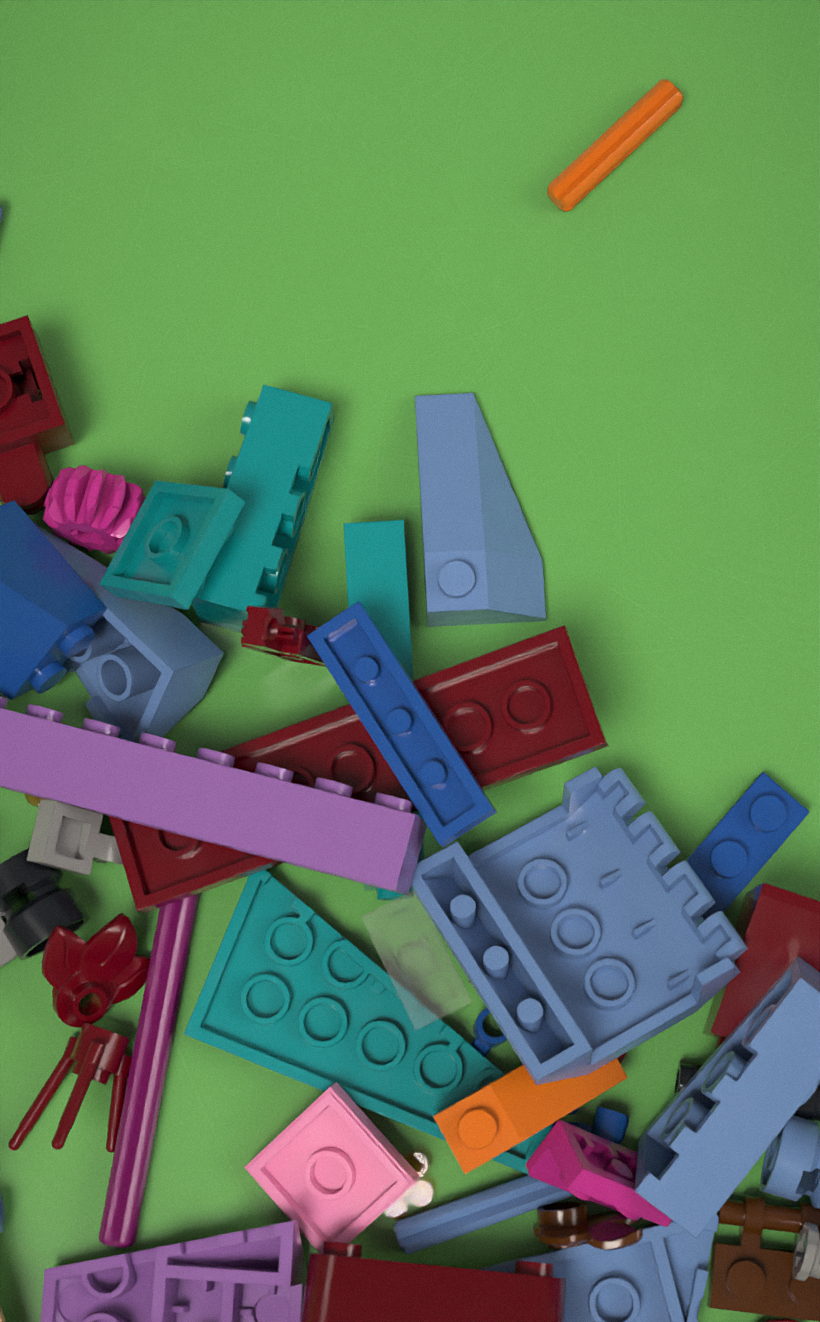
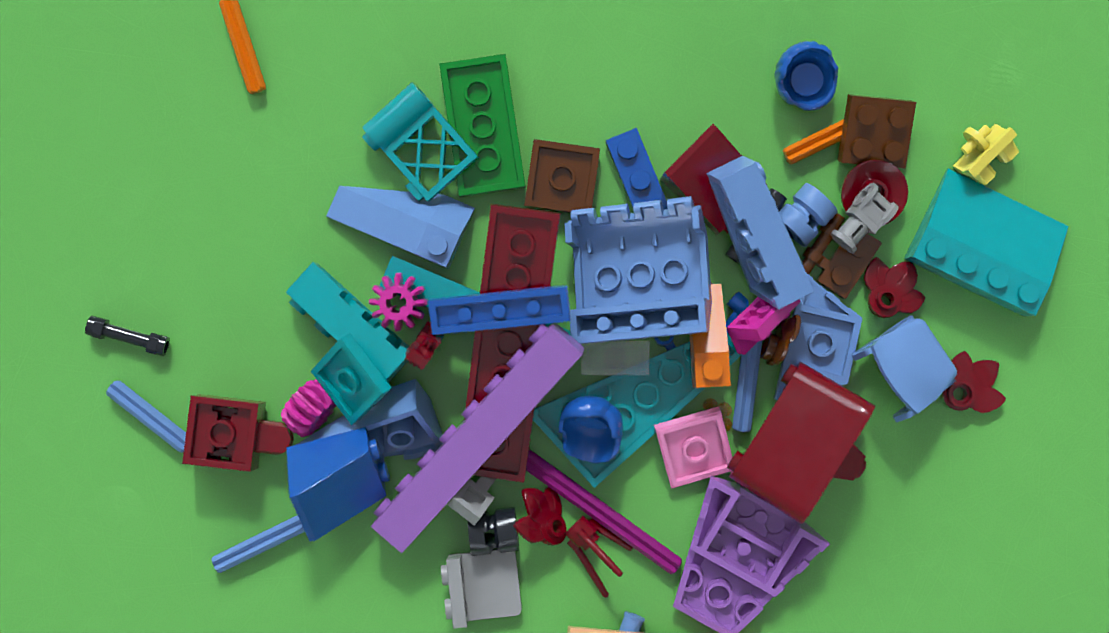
camera: 65 degrees left, 10 degrees up
(72, 145) = (100, 328): none -> black bar
(278, 976) = (591, 429): none -> blue piece
(312, 569) = (405, 311): none -> dark pink gear
(613, 432) = (399, 123): none -> teal piece
(668, 729) = (561, 176): none -> reddish brown plate
(682, 565) = (484, 116): none -> green plate

